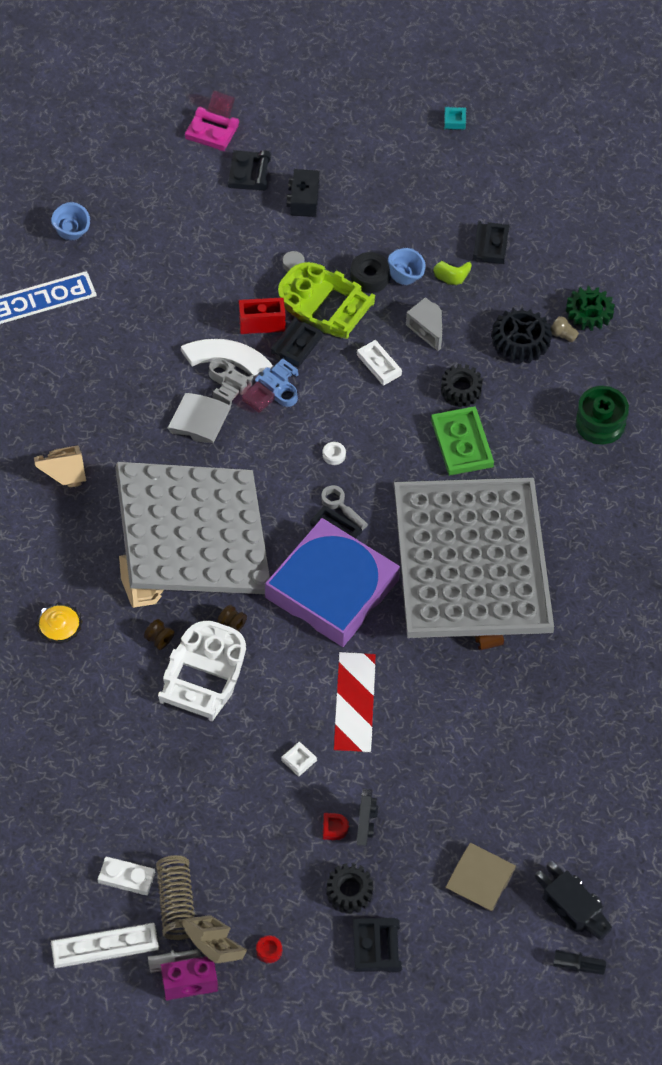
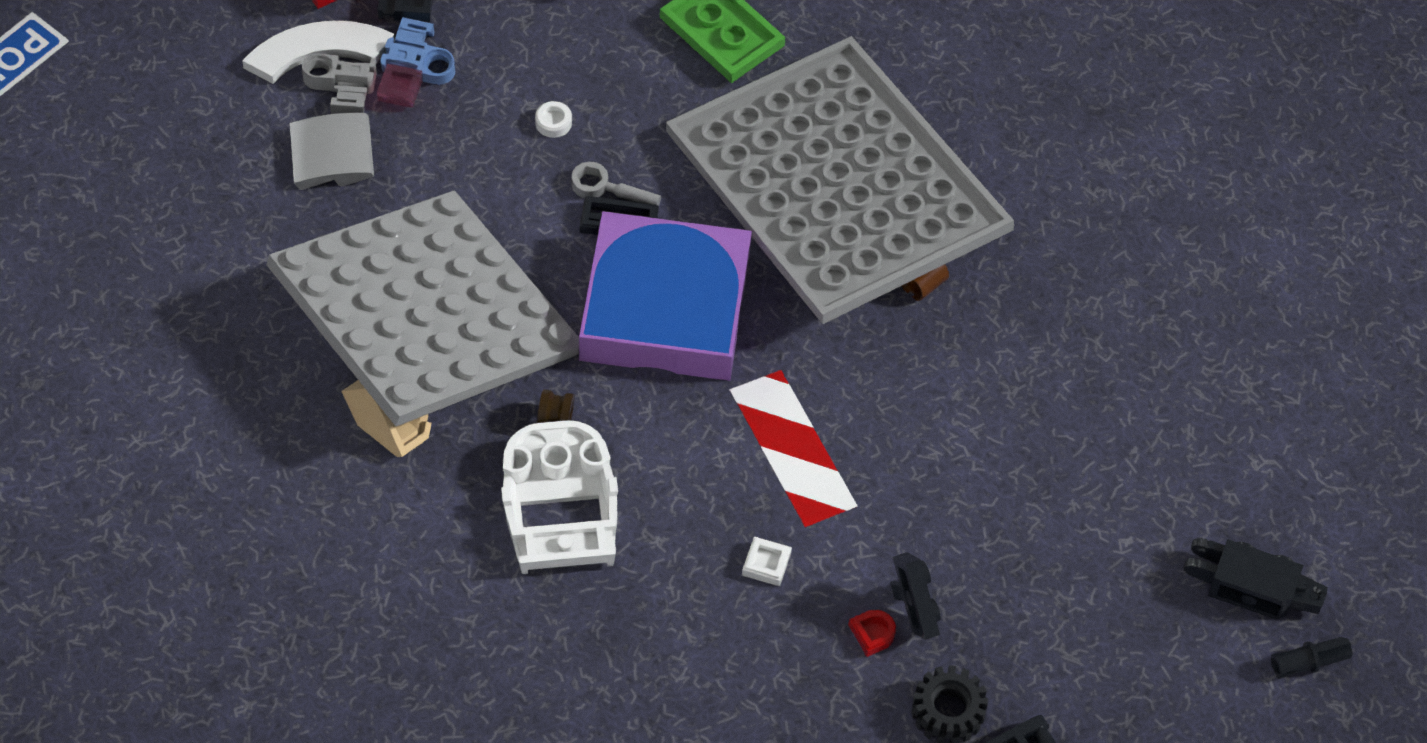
camera: 30 degrees left, 0 degrees up
(59, 623) = (309, 526): yellow piece -> none
(63, 465) = (178, 297): tan slope -> none
(159, 634) = (463, 477): dark brown wheel -> none
(481, 876) = (1113, 604): dark tan slope -> none

